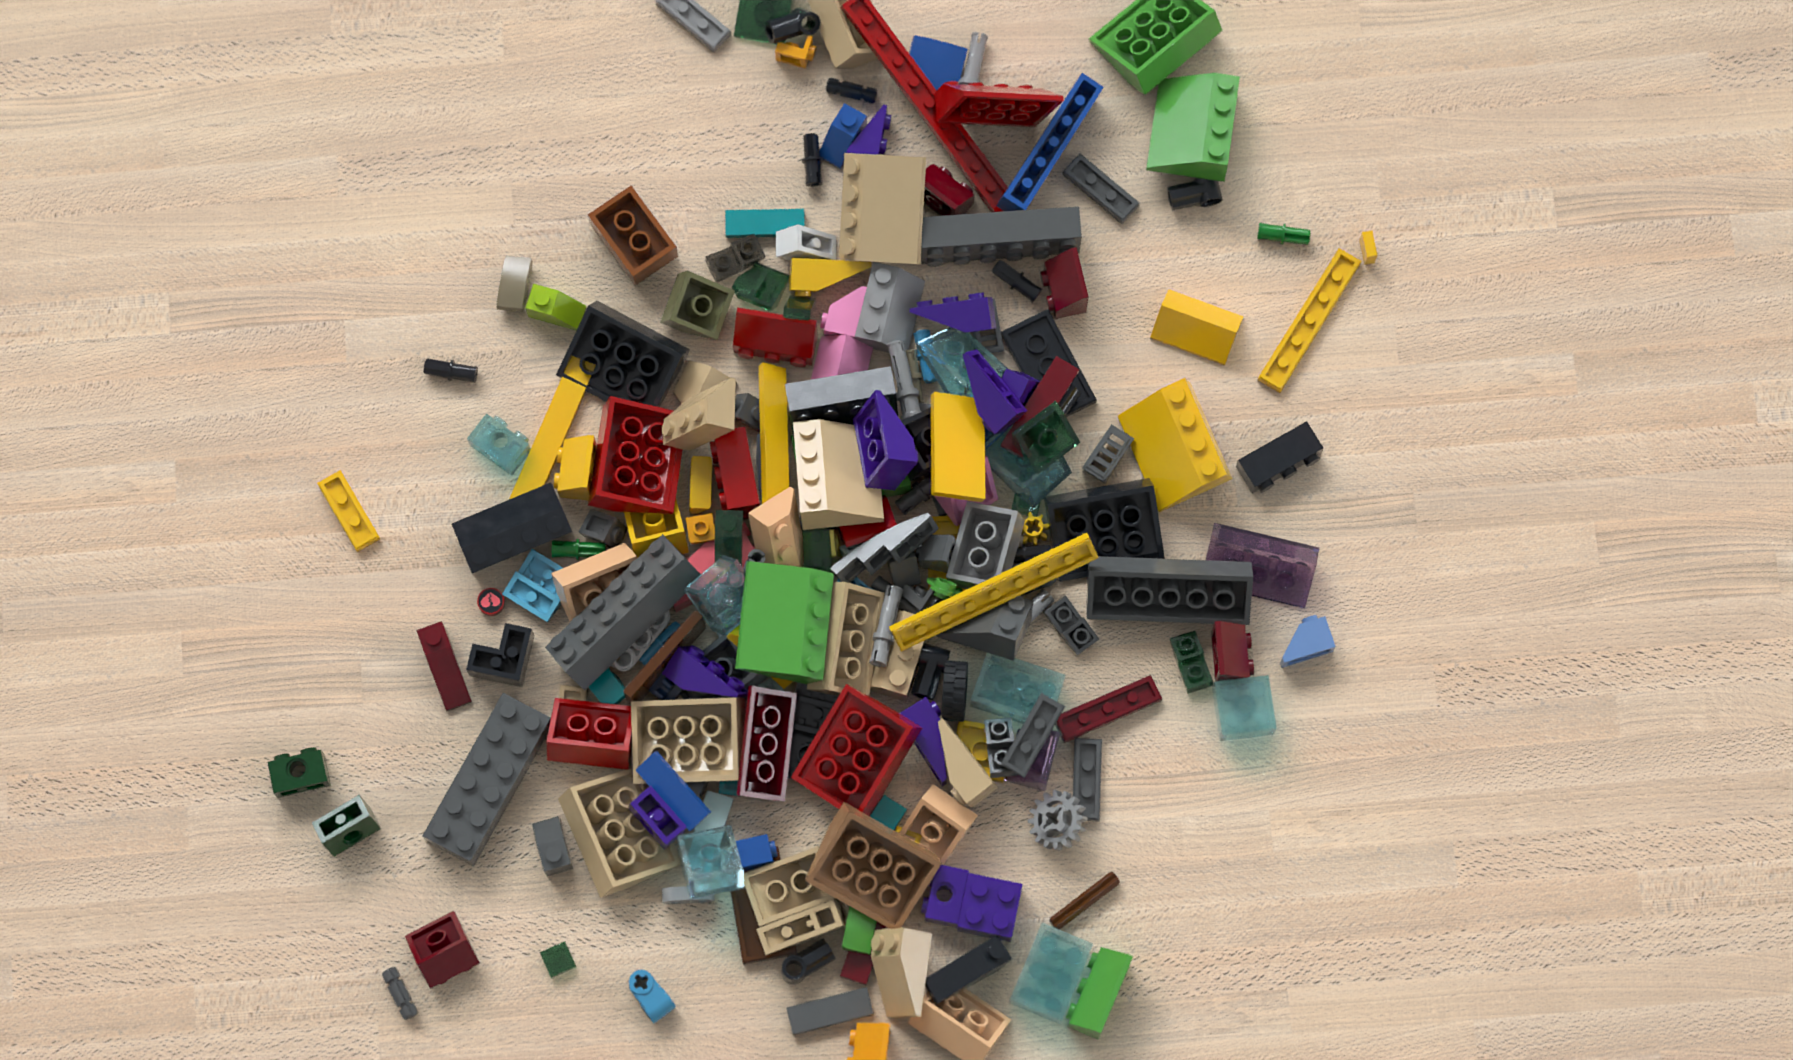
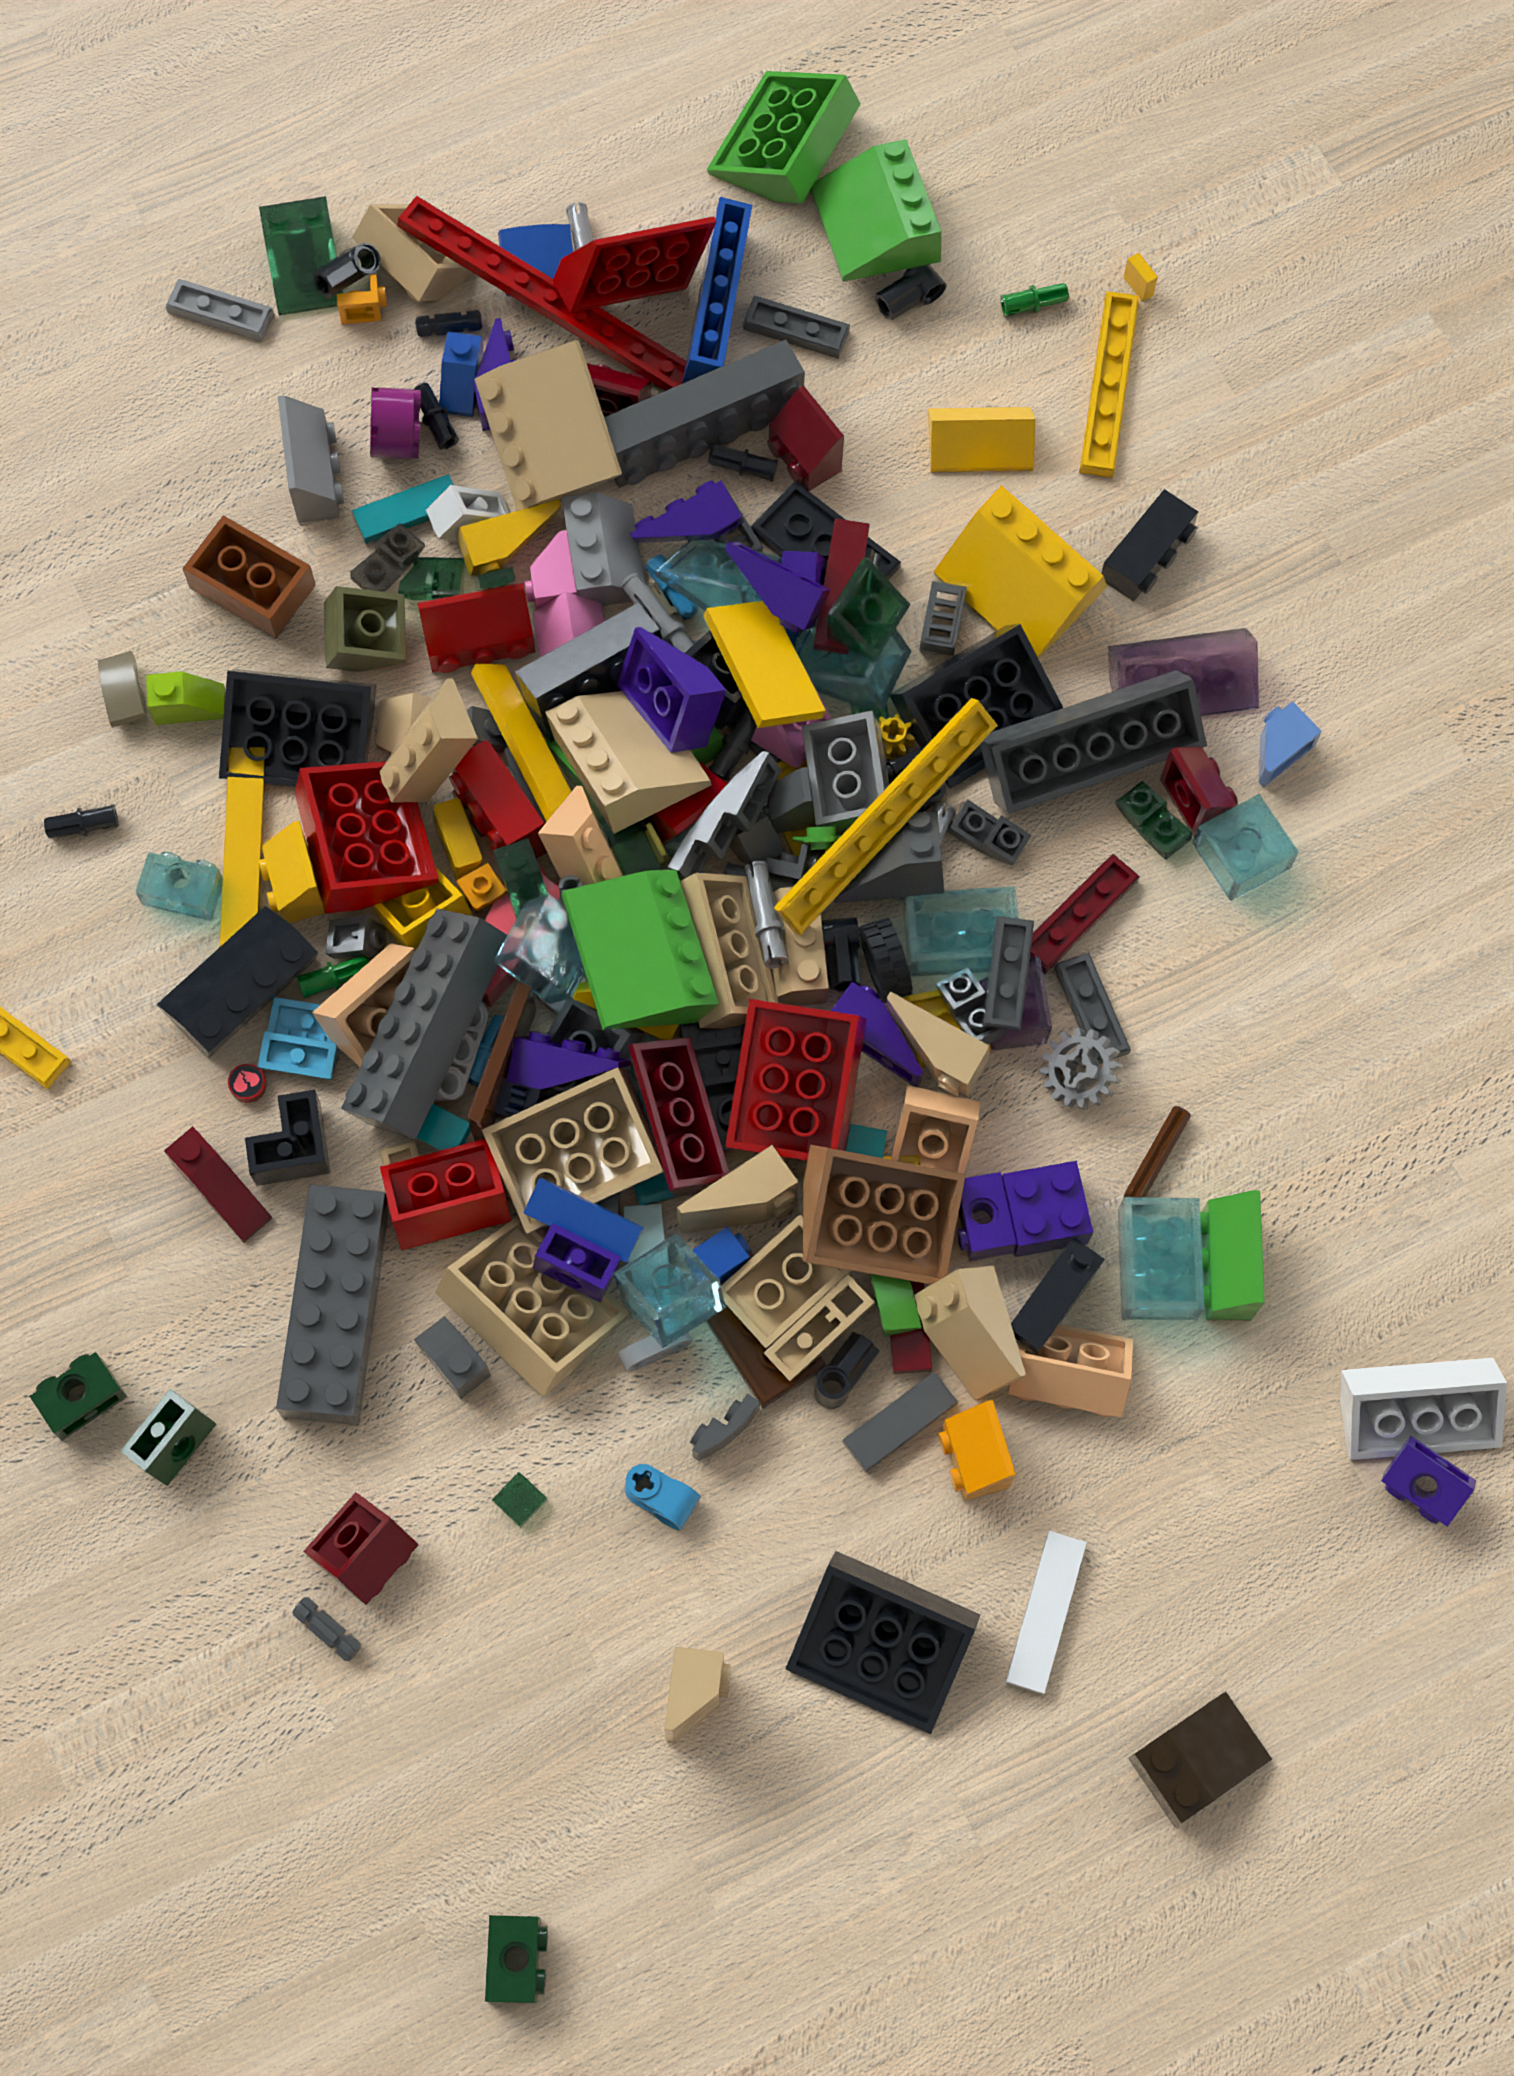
camera: 25 degrees left, 5 degrees down
(702, 971) = (717, 1435): none -> dark grey slope
(709, 163) = (310, 460): none -> light grey slope
(778, 156) = (395, 423): none -> magenta brick
(791, 816) = (745, 1196): none -> tan slope

